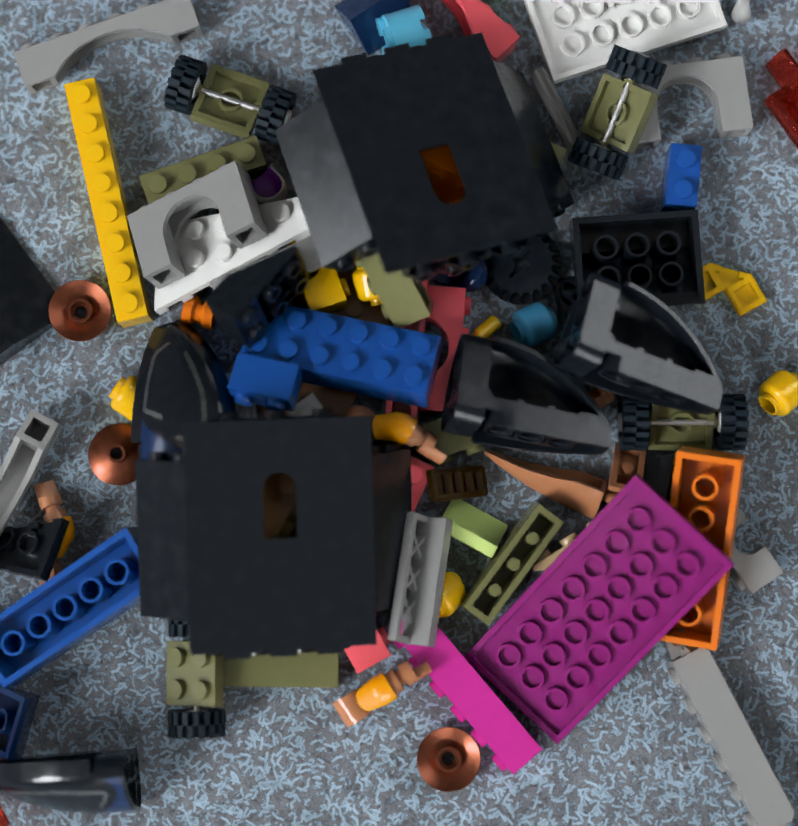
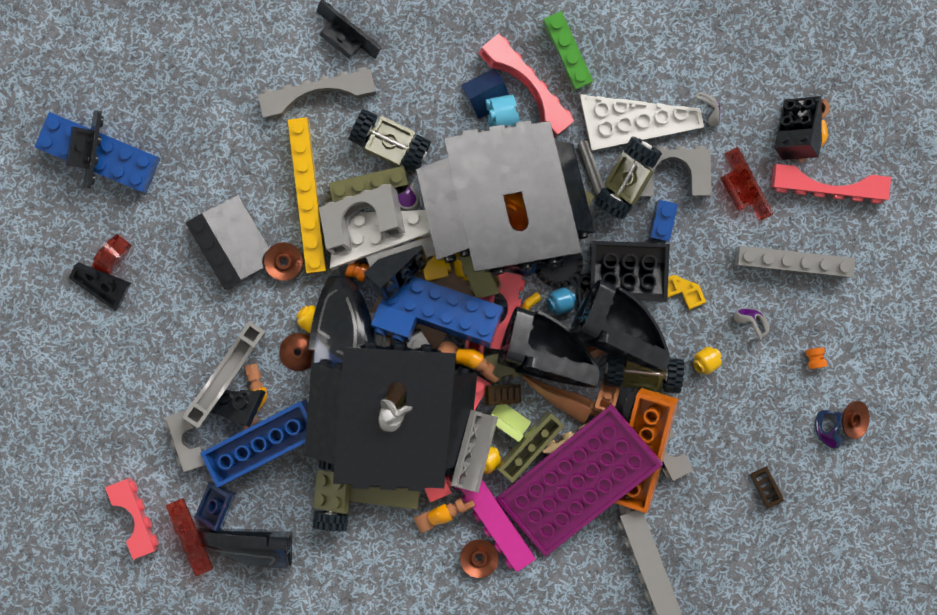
camera: 10 degrees right, 5 degrees up
(275, 531) = (391, 418): none -> light grey piece

